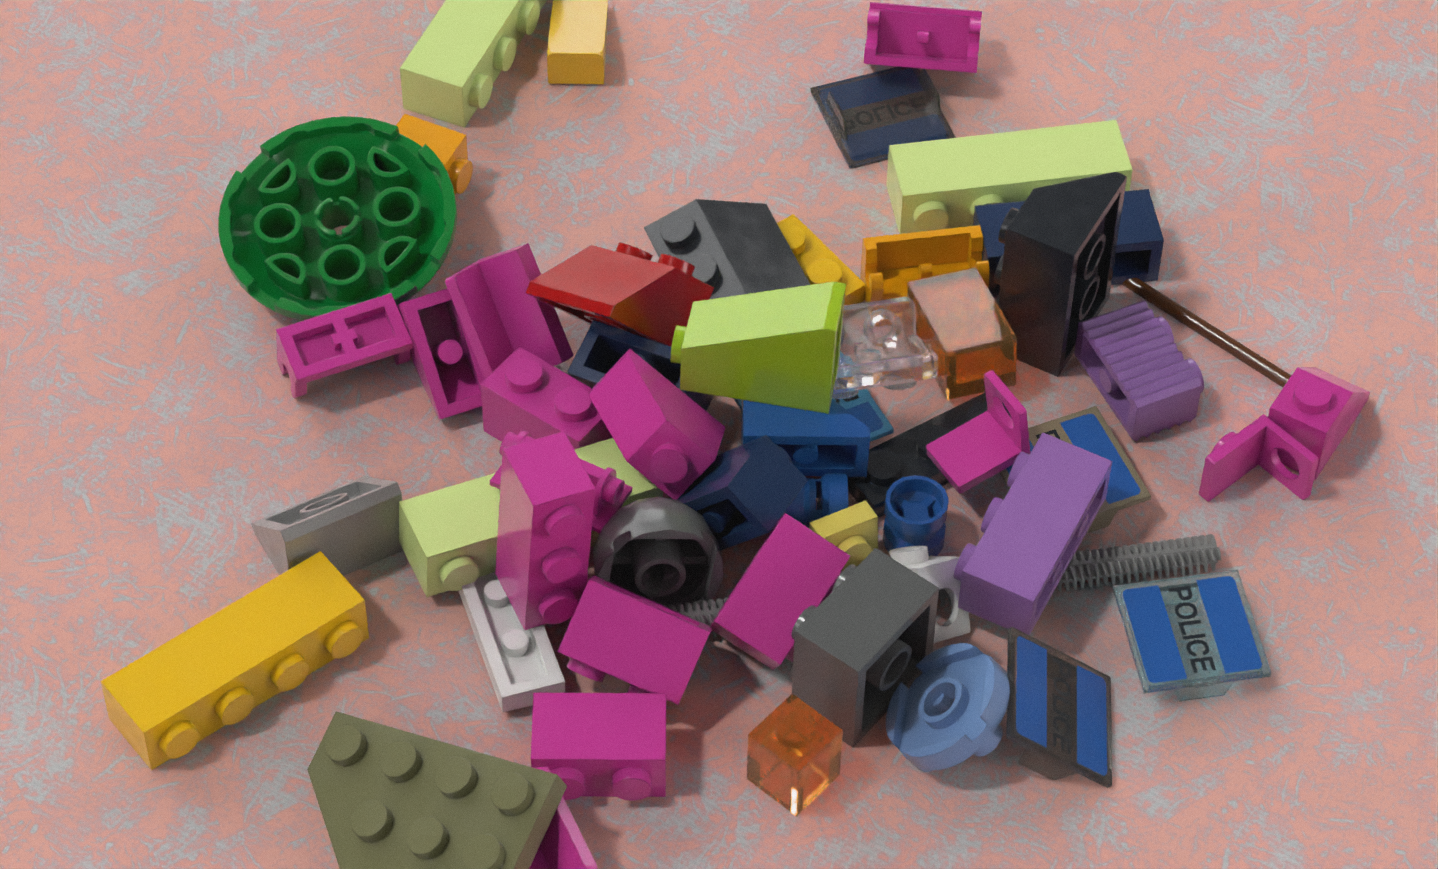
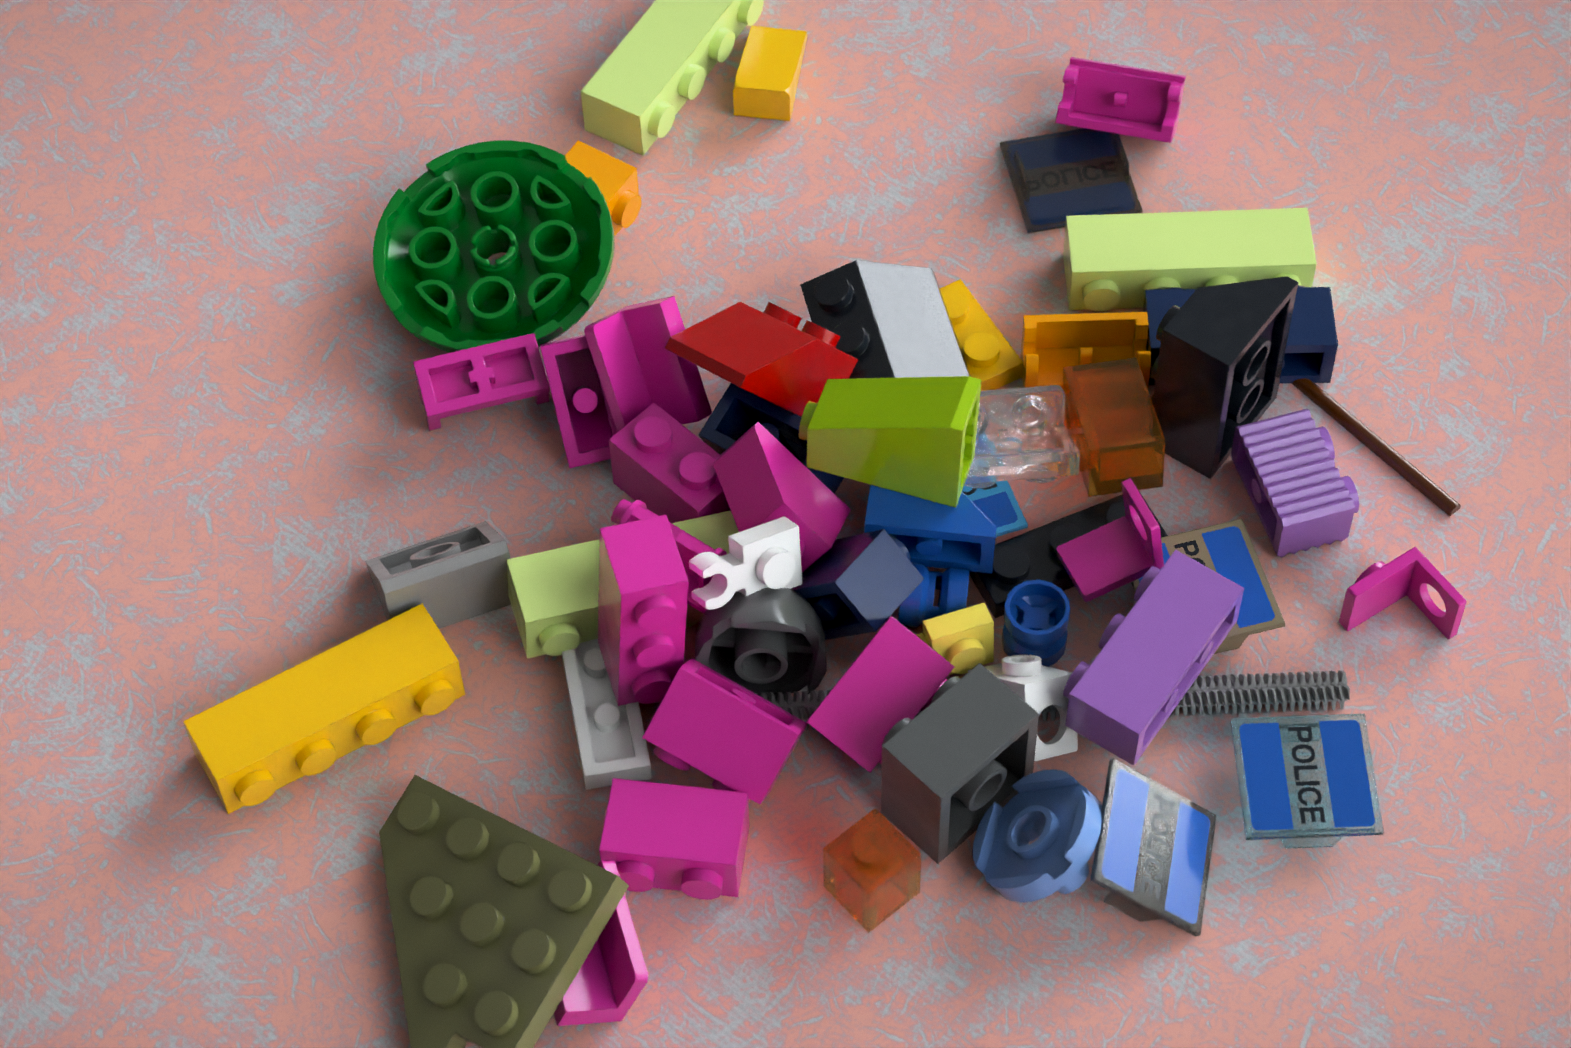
camera: 10 degrees right, 5 degrees up
(647, 475) = (756, 560): none -> white plate
(1316, 412) = (1474, 546): dark pink slope -> none

